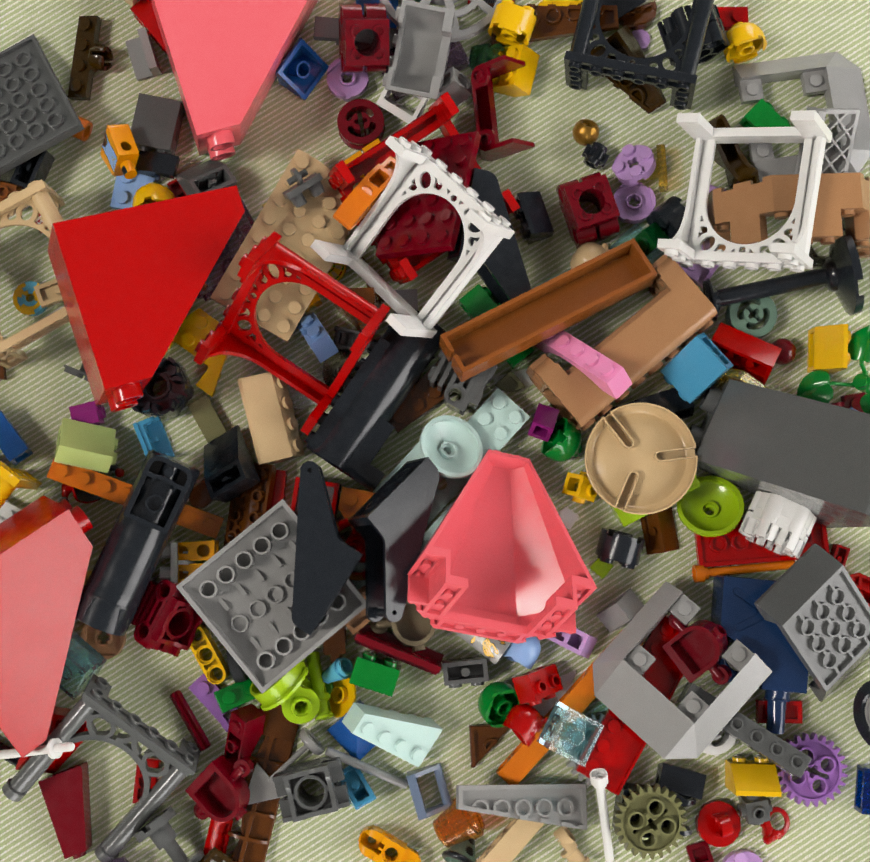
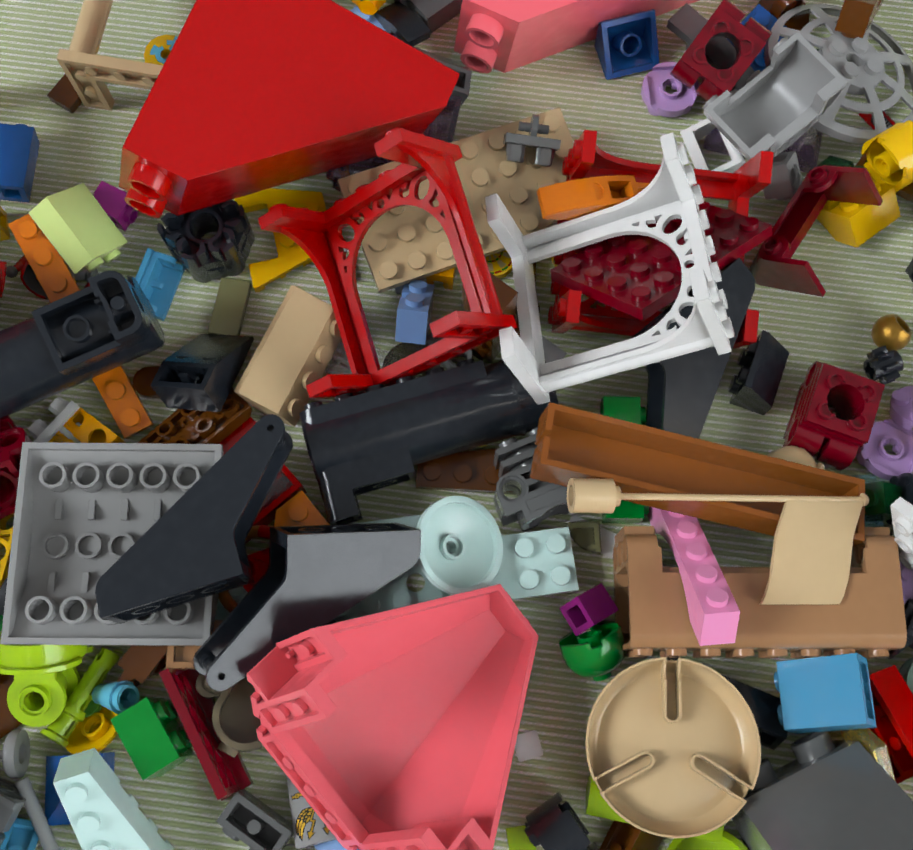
camera: 40 degrees right, 10 degrees down
(347, 127) = (635, 130): dark red wheel -> none
(579, 488) = (569, 720): yellow brick -> none
(631, 299) = (808, 547): none -> tan flag

